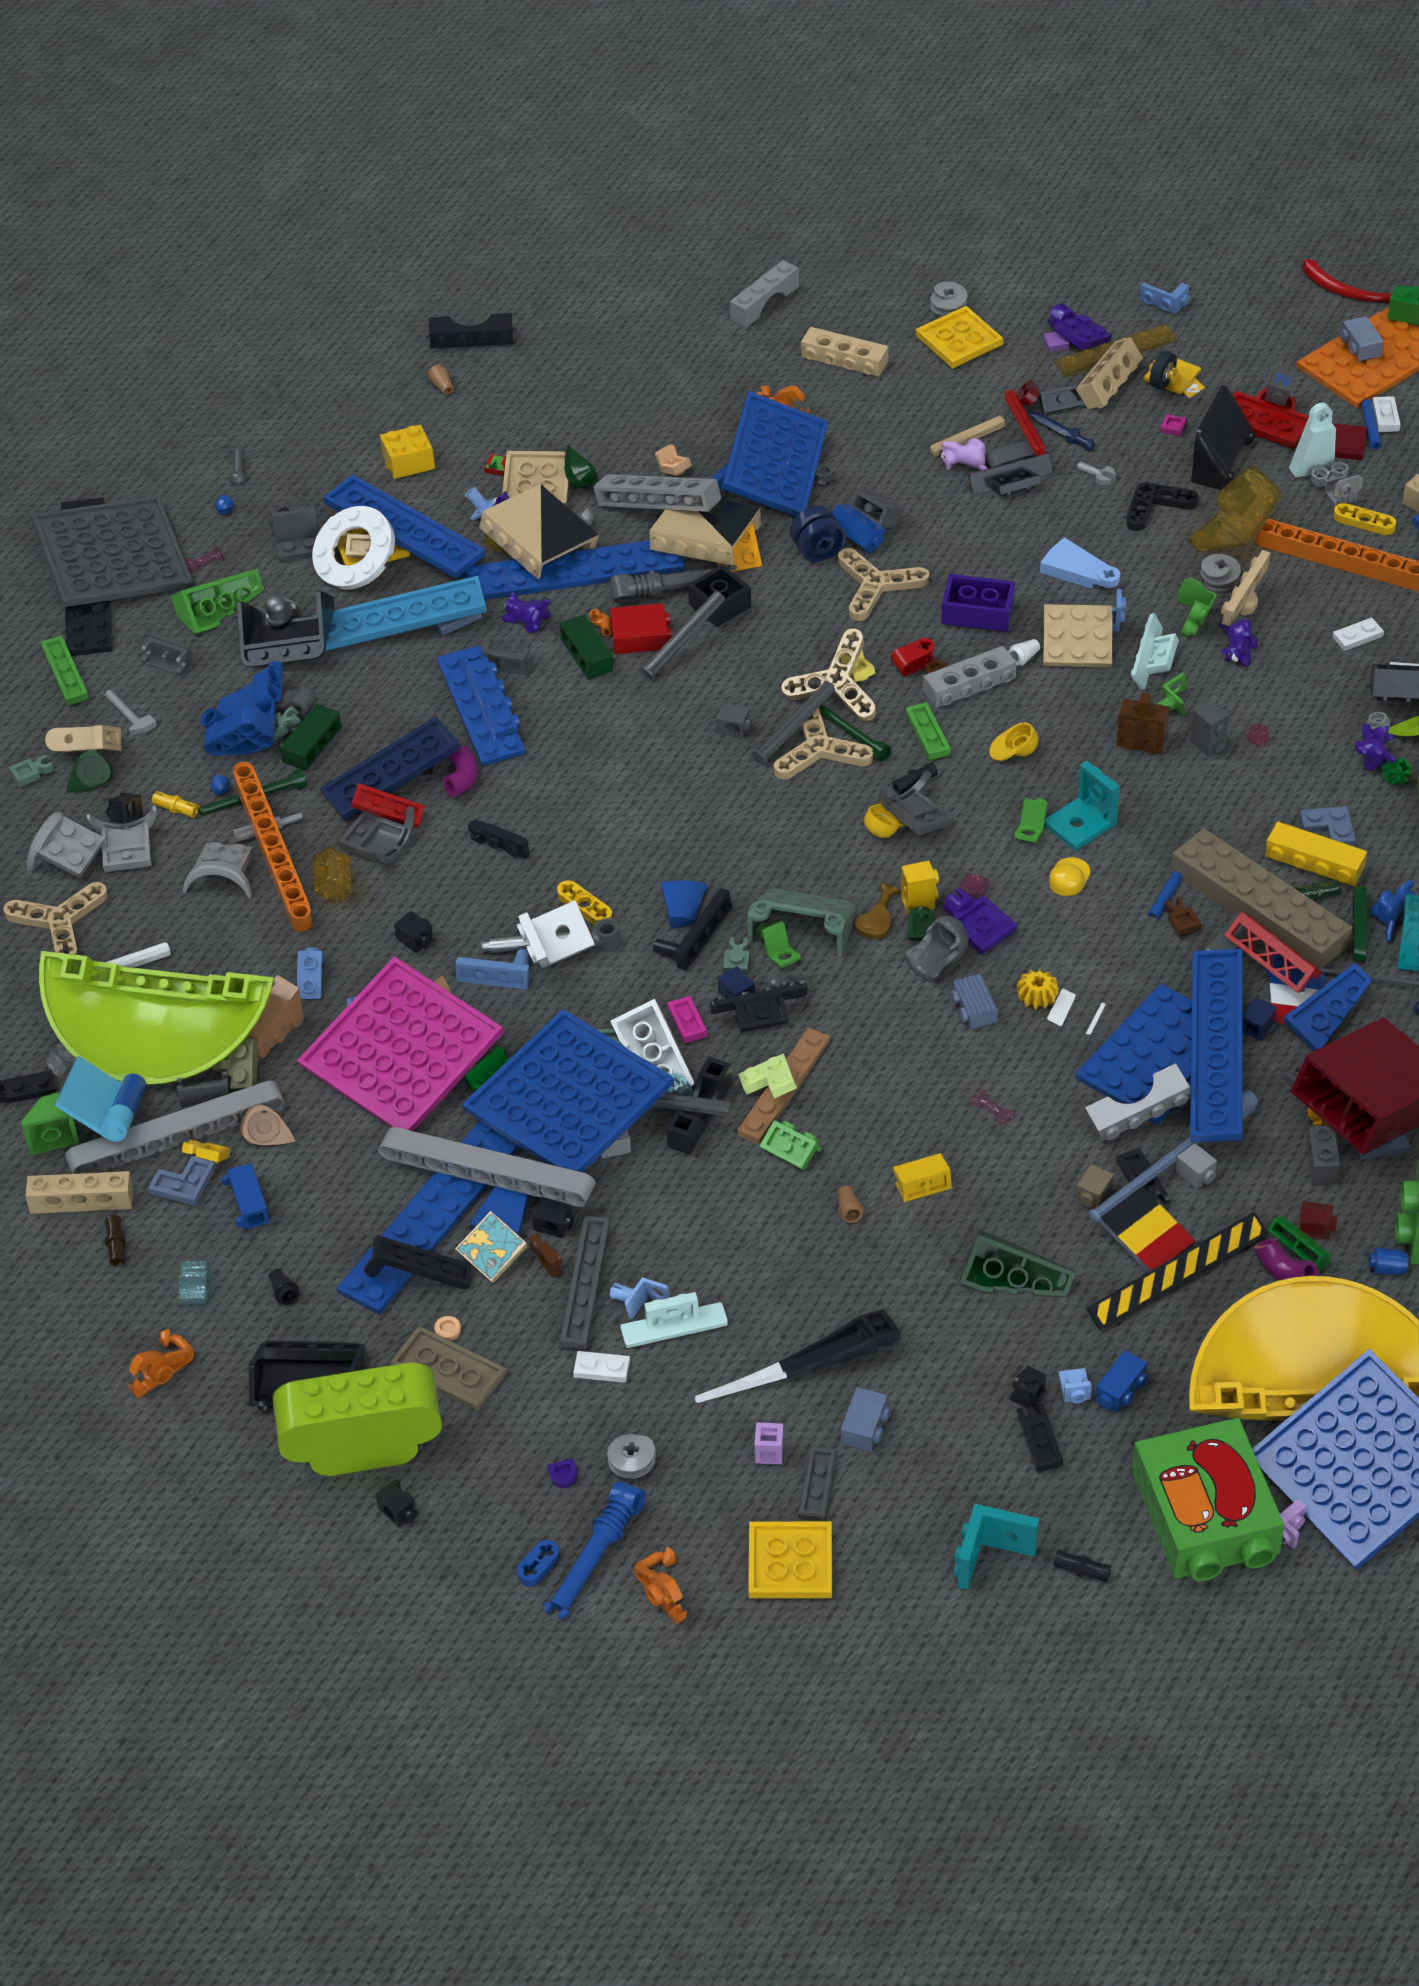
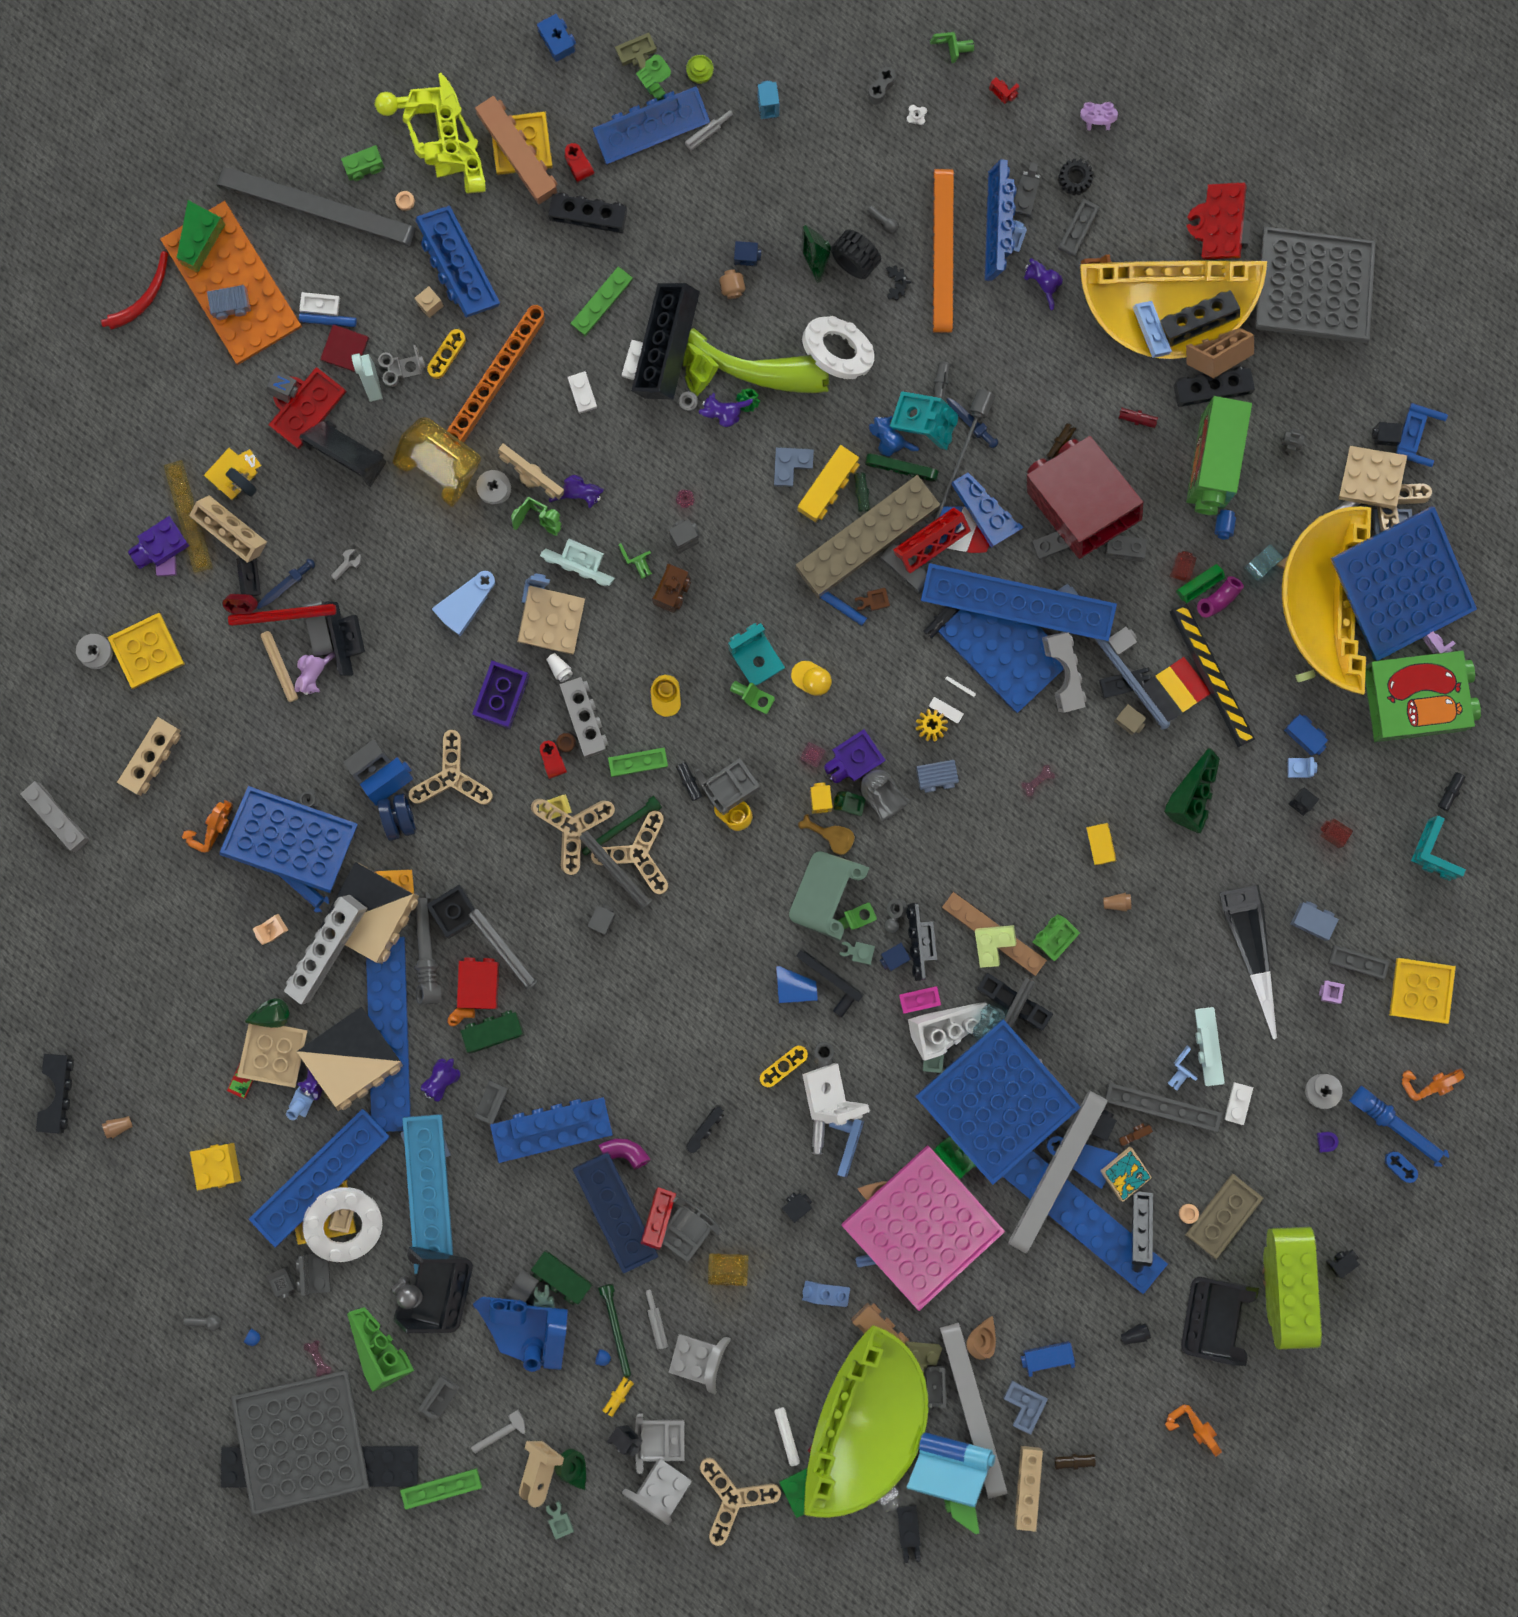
camera: 85 degrees left, 35 degrees up
(194, 1282) = (1124, 1402): clear light blue axle -> none
(206, 1151) = (1000, 1385): yellow plate -> none
(272, 847) = (700, 1319): orange beam -> none
(586, 515) = (326, 1016): light grey hinge -> none
(992, 1431) = (1335, 832): none -> clear red brick
(1040, 1438) = (1344, 800): black hinge -> none
(1154, 496) = (388, 522): black beam -> none
(1166, 301) = (135, 459): medium blue bracket -> none
(1171, 982) = (939, 621): none -> black axle
(1173, 425) = (296, 486): dark pink tile -> none
(1258, 1018) = (986, 564): dark blue brick -> none

